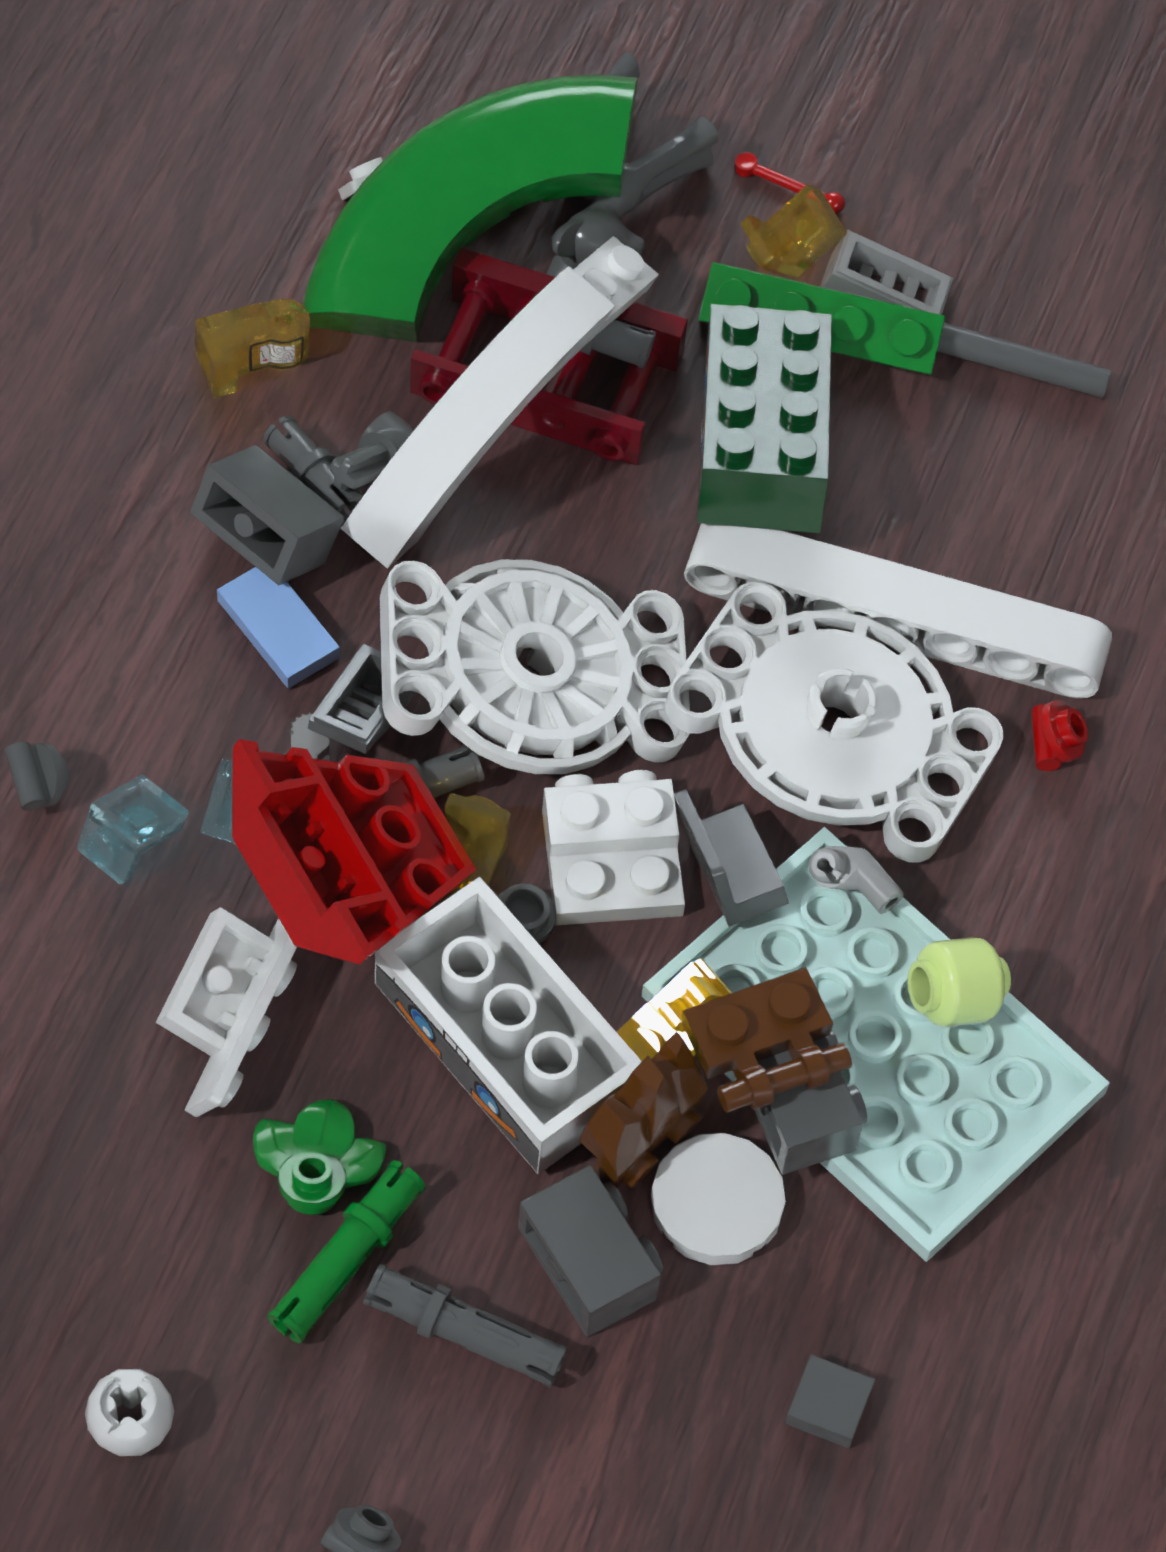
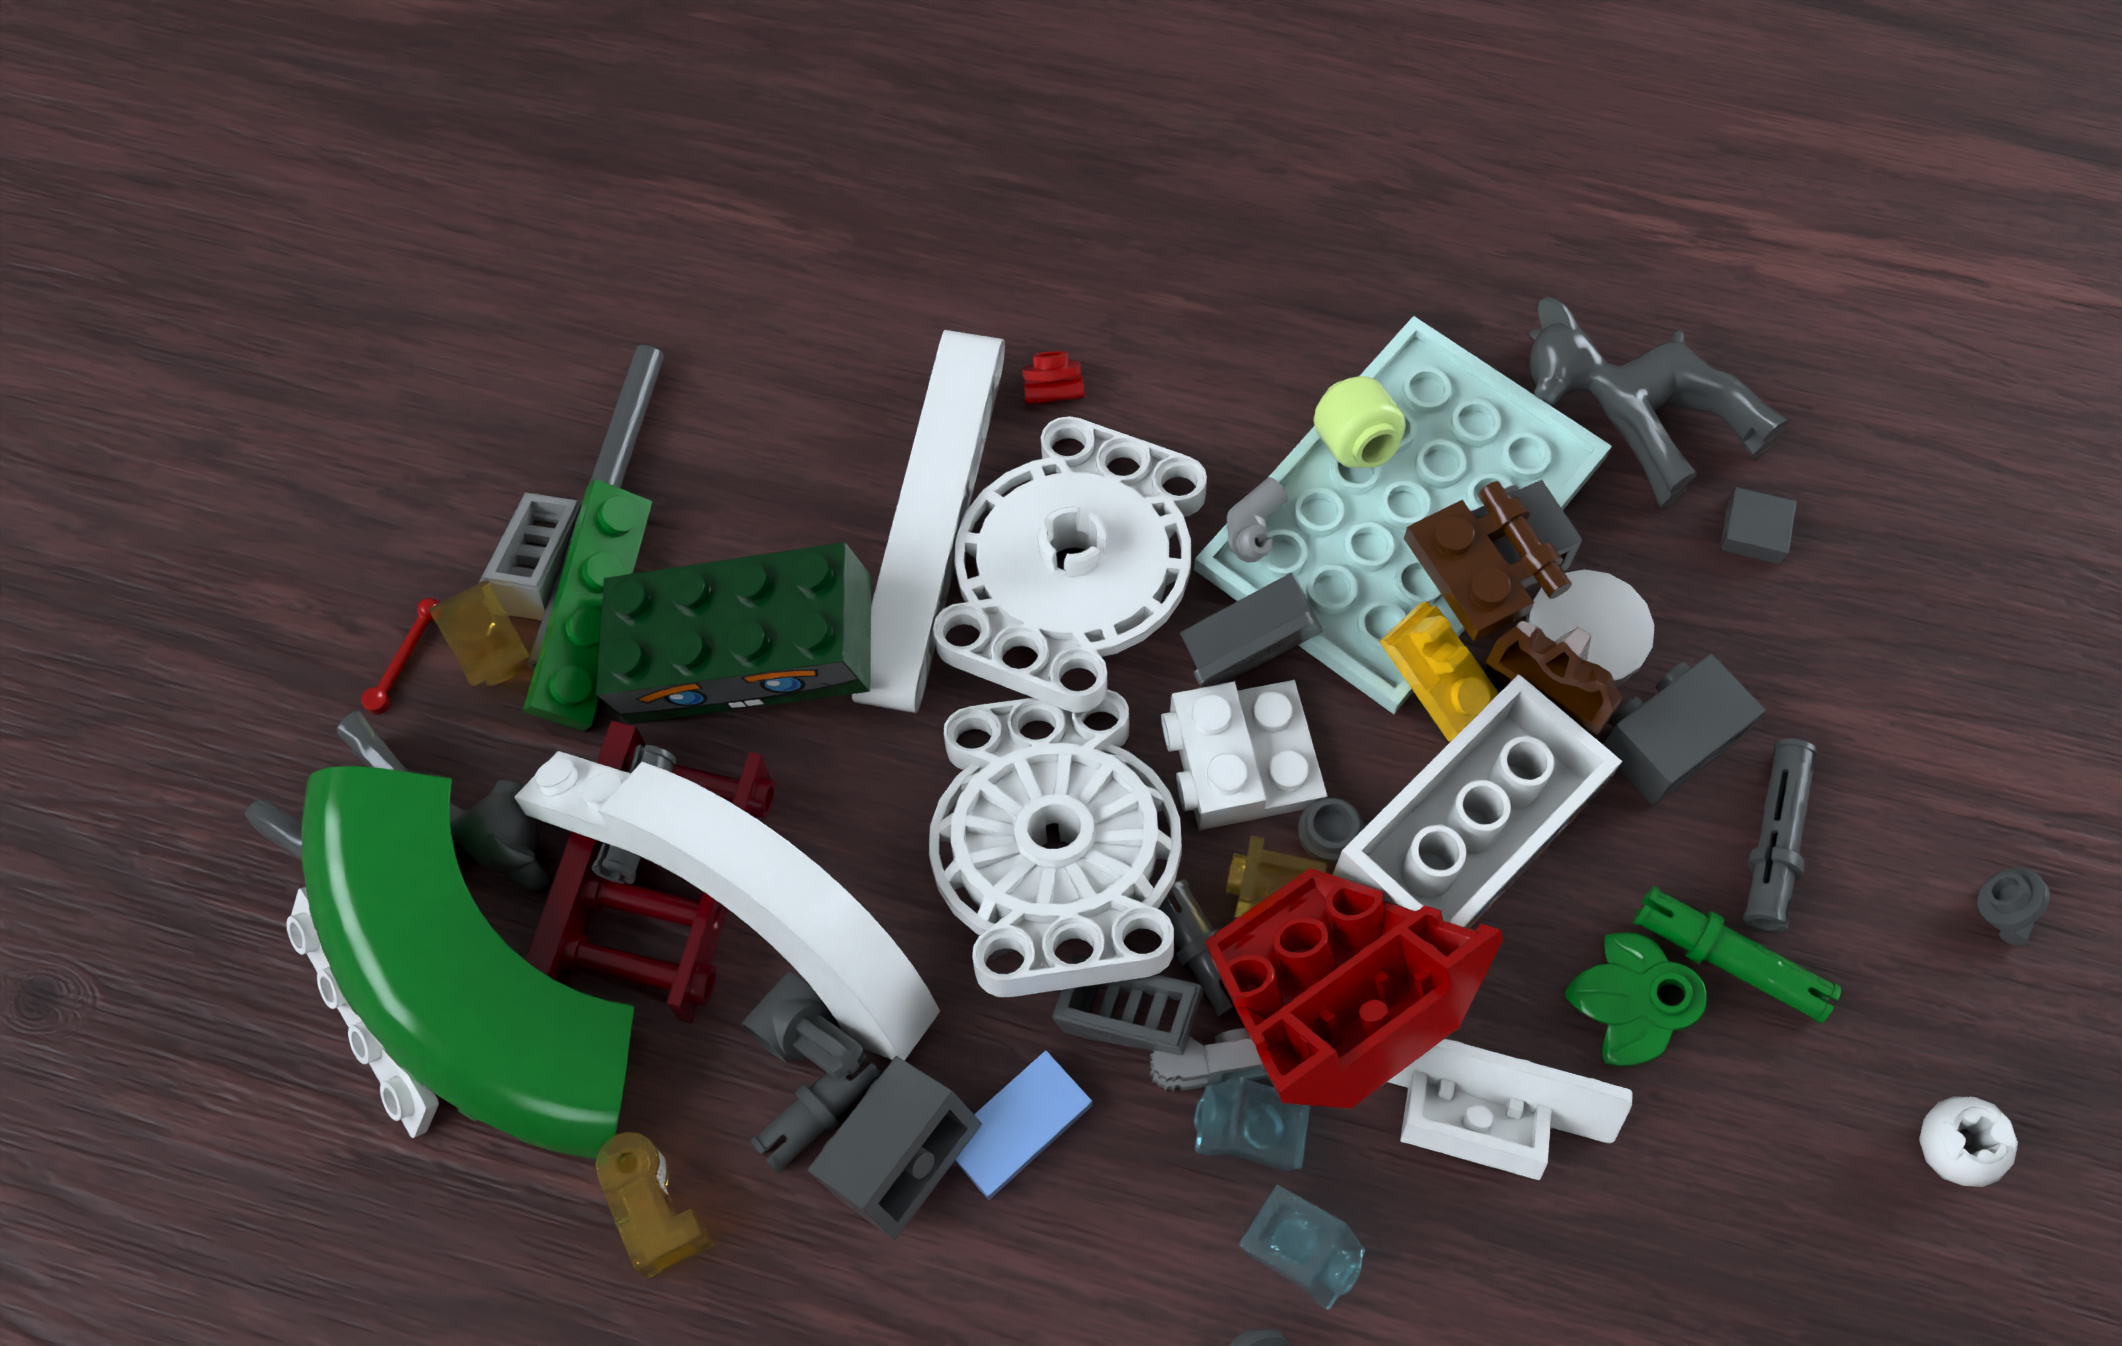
camera: 90 degrees left, 5 degrees up
(1039, 1226) = (1629, 394): none -> dark grey animal

